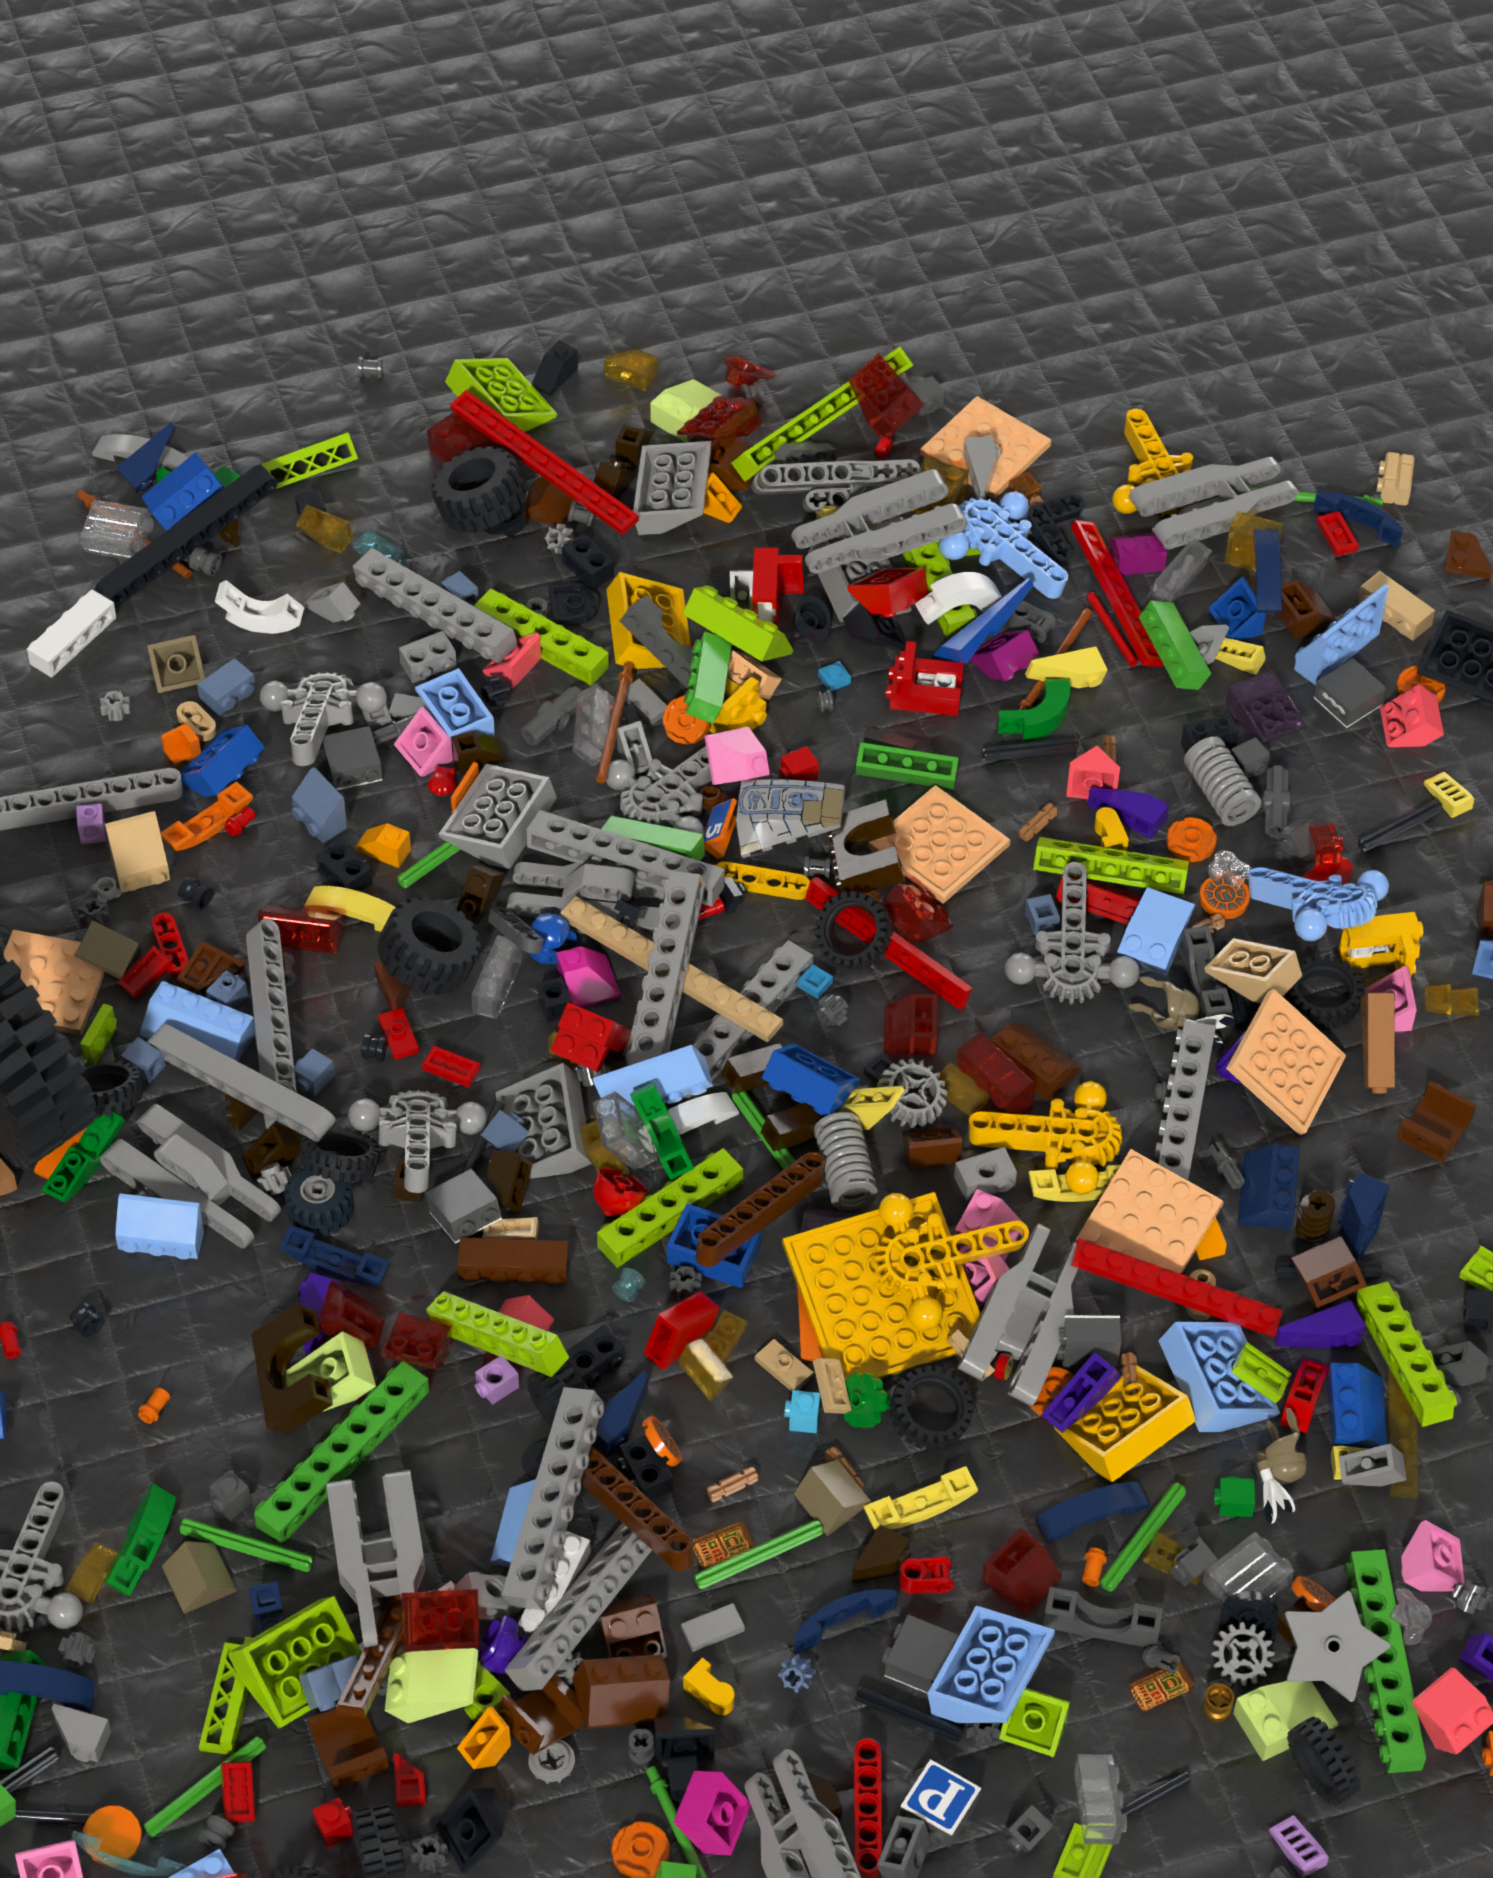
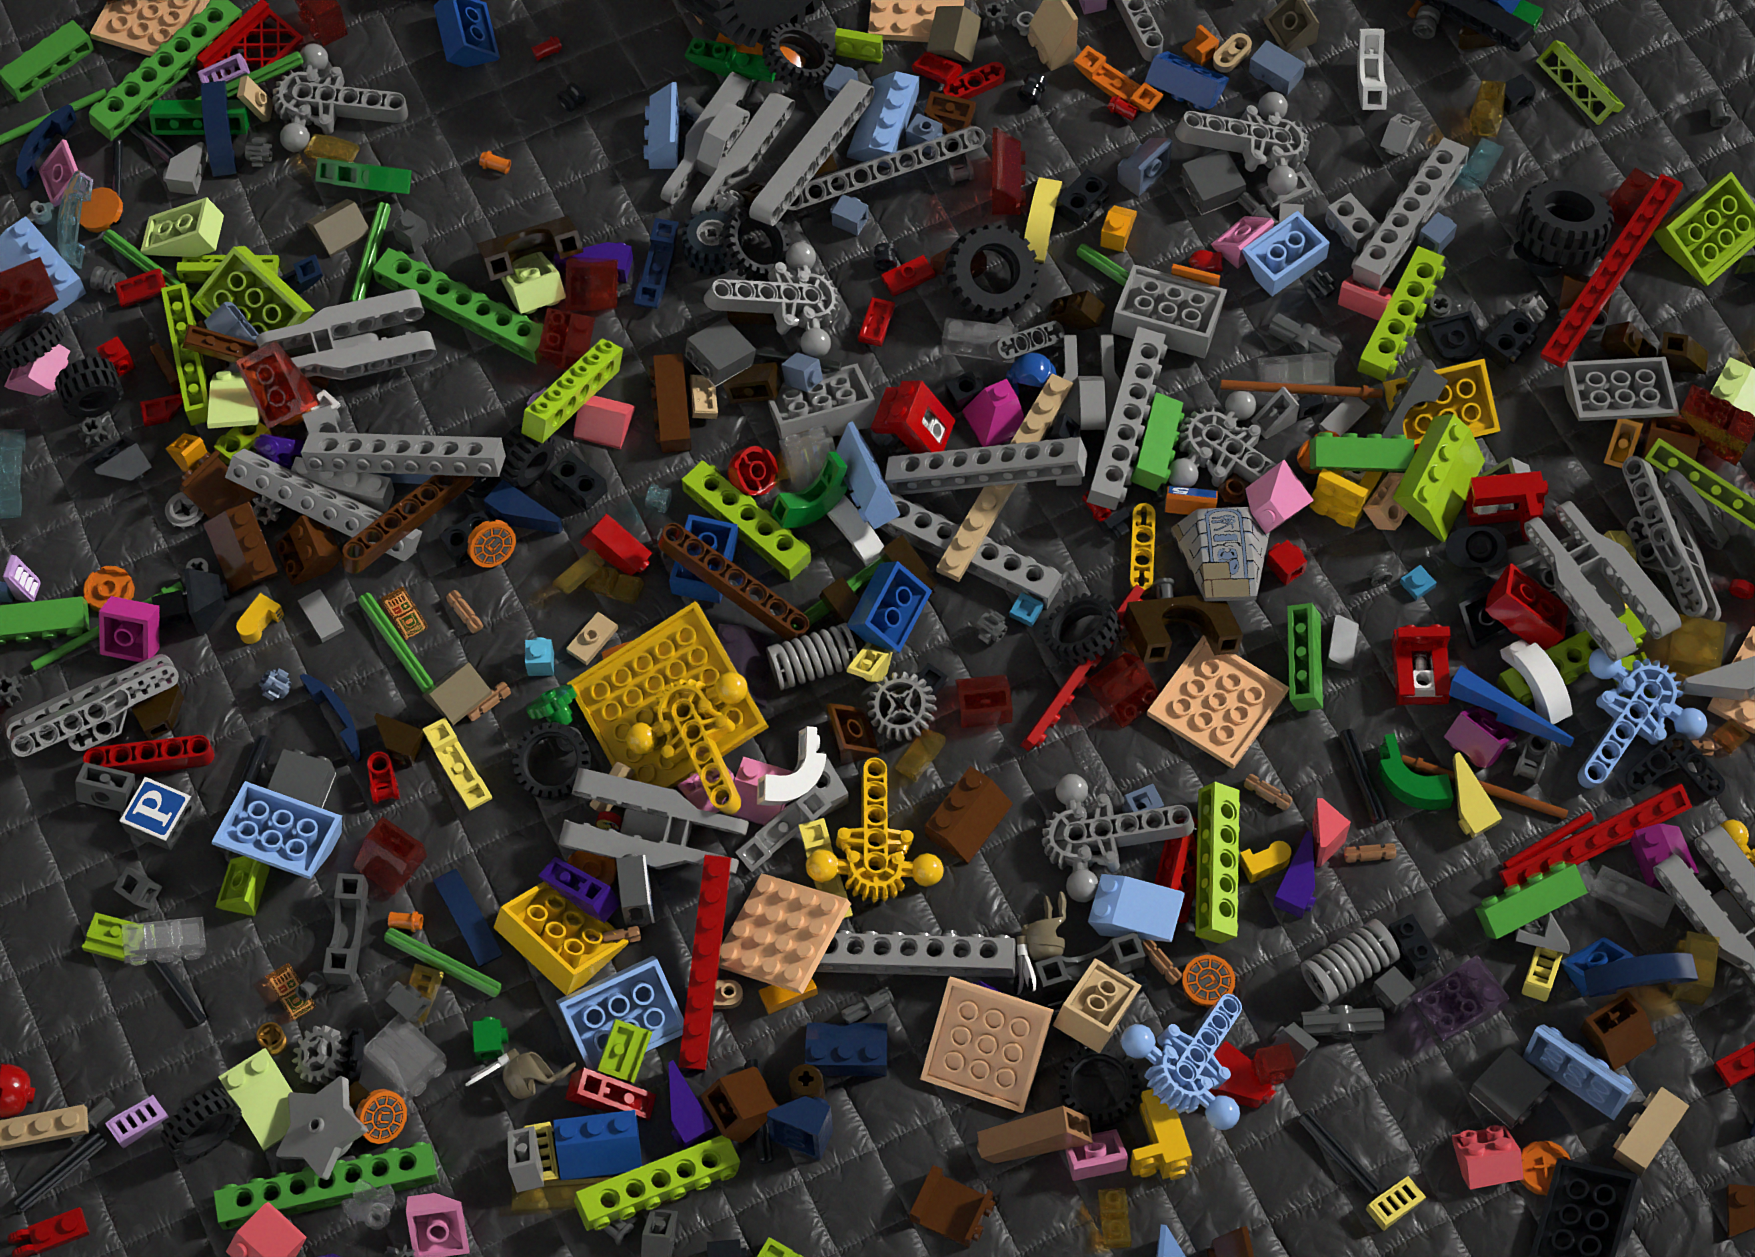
camera: 85 degrees right, 10 degrees up
(169, 1741) = (184, 230): none -> yellowish green slope
(350, 1735) = (189, 363): none -> lime brick
(476, 748) = (1242, 280): dark brown slope -> none
(832, 1385) = (562, 672): tan plate -> none
(987, 1172) = (778, 789): none -> white arch
(996, 1075) = (926, 775): clear red slope -> none
(1027, 1209) = (782, 827): none -> light grey slope
(1191, 839) = (1278, 943): orange tile -> none
(1228, 867) = (1237, 981): clear plate -> none

